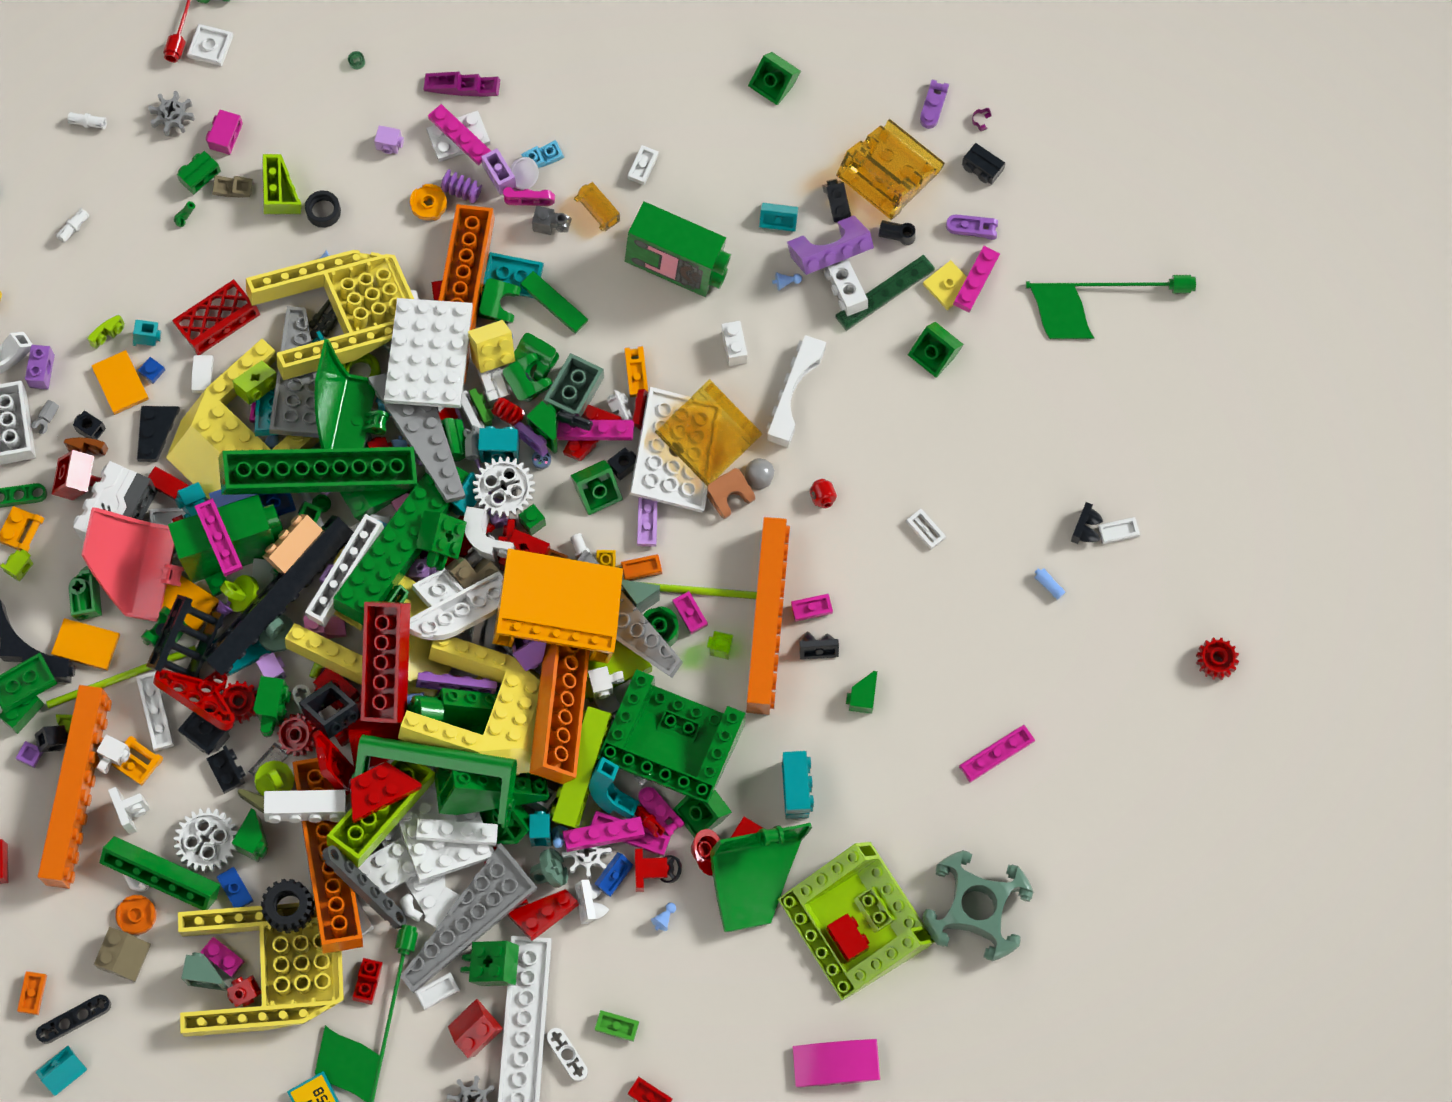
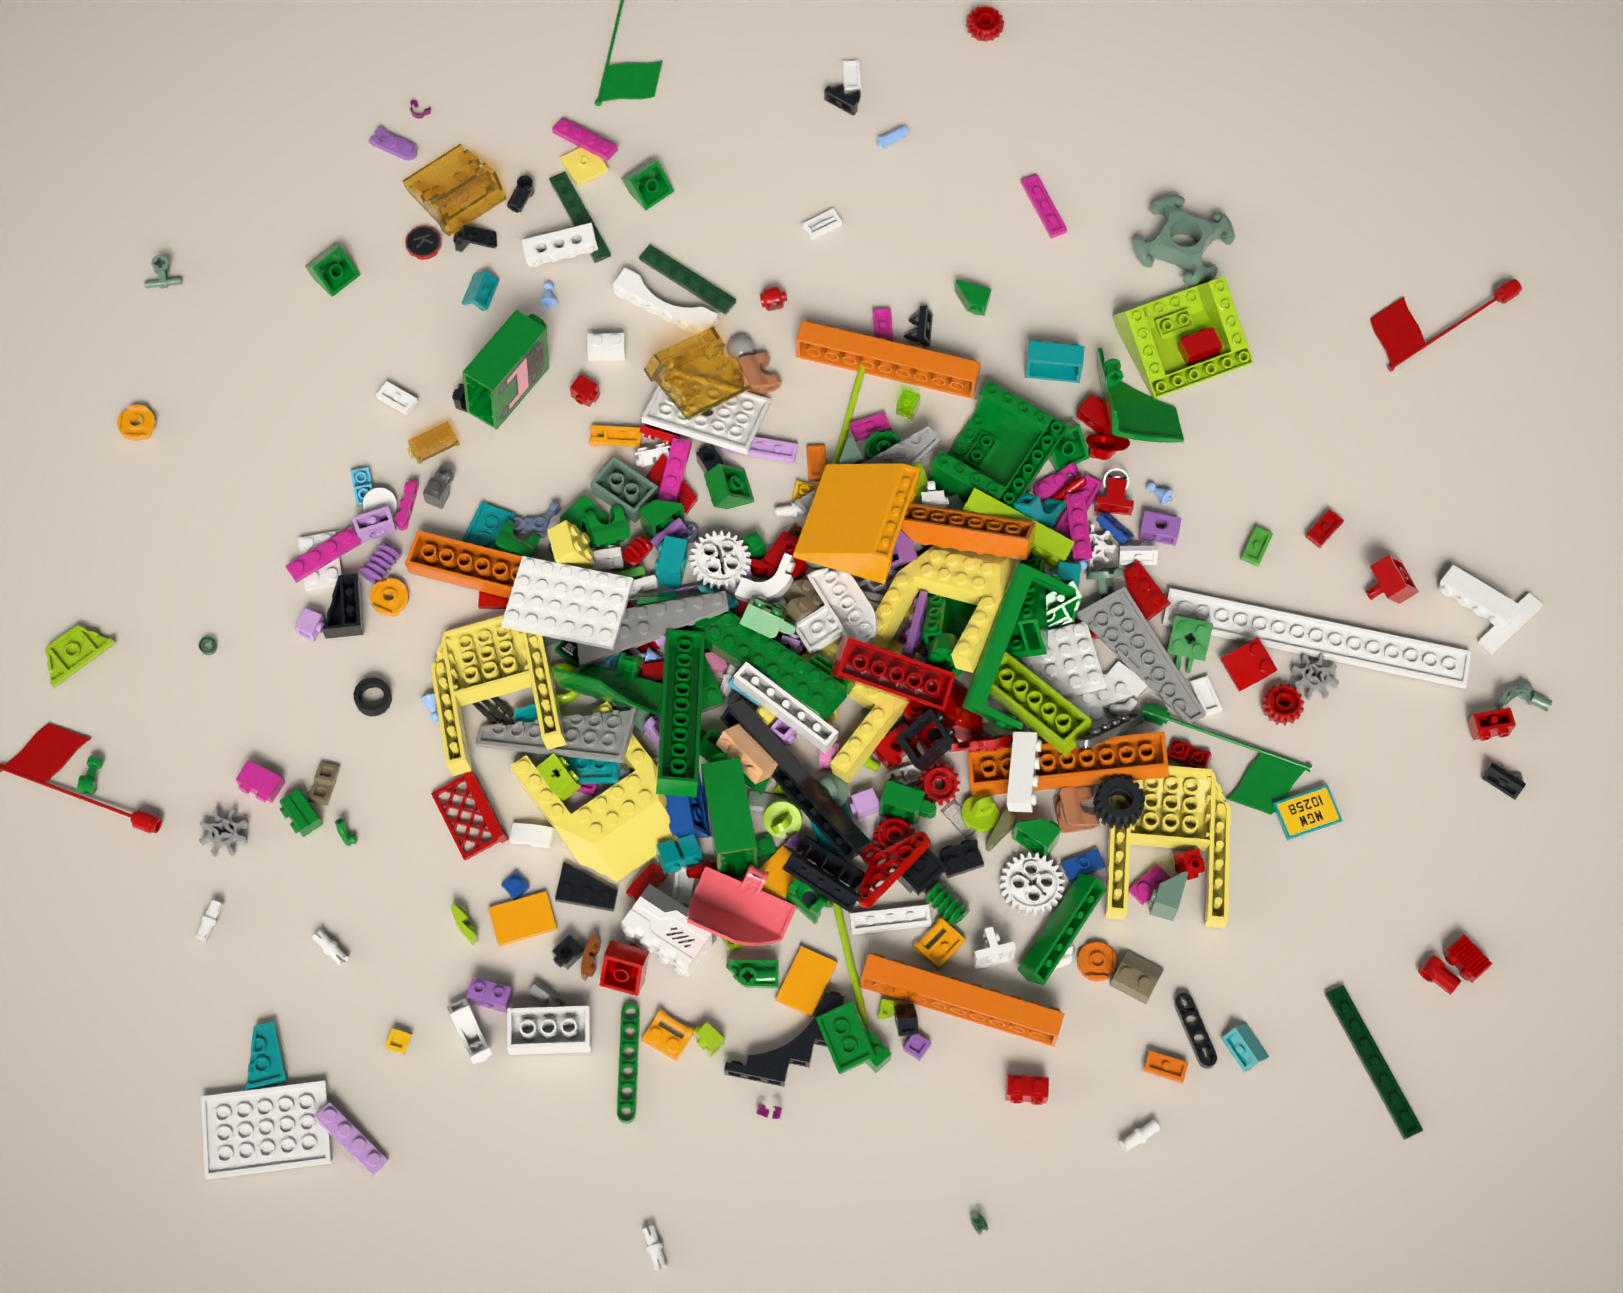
camera: 80 degrees left, 5 degrees down
(112, 752) = (932, 958): white brick -> none
(146, 333) = (474, 884): teal brick -> none
(174, 760) = (946, 904): none -> green piece
(210, 45) = (149, 787): white tile -> none
(218, 537) = (743, 802): dark pink plate -> none
(278, 190) = (338, 735): lime wedge -> none
(289, 865) = (1069, 812): none -> nougat piece
(379, 789) = (1021, 697): red wing -> none
(408, 166) = (345, 611): none -> black wedge
(435, 1059) = (1289, 697): none -> red gear
(456, 832) = (1062, 648): white plate -> none
(462, 85) = (264, 549): magenta slope -> none
(471, 443) = (666, 585): light grey bar -> none
(528, 320) = (539, 524): none -> sand blue piece
(554, 302) = (526, 497): green tile -> none
(563, 1039) = (1282, 585): white beam -> none
(574, 420) = (664, 486): black axle -> none
(617, 909) = (1165, 535): none -> medium lavender brick
(680, 333) = (584, 391): none -> red brick
(824, 154) = (423, 242): none -> black tile
(831, 408) = (687, 279): none -> clear green tile
(836, 1063) = (1310, 374): dark pink slope -> none
(853, 241) = (538, 259): medium lavender arch -> none
(972, 226) = (529, 134): medium lavender plate -> none
(983, 164) = (468, 113): black brick -> none

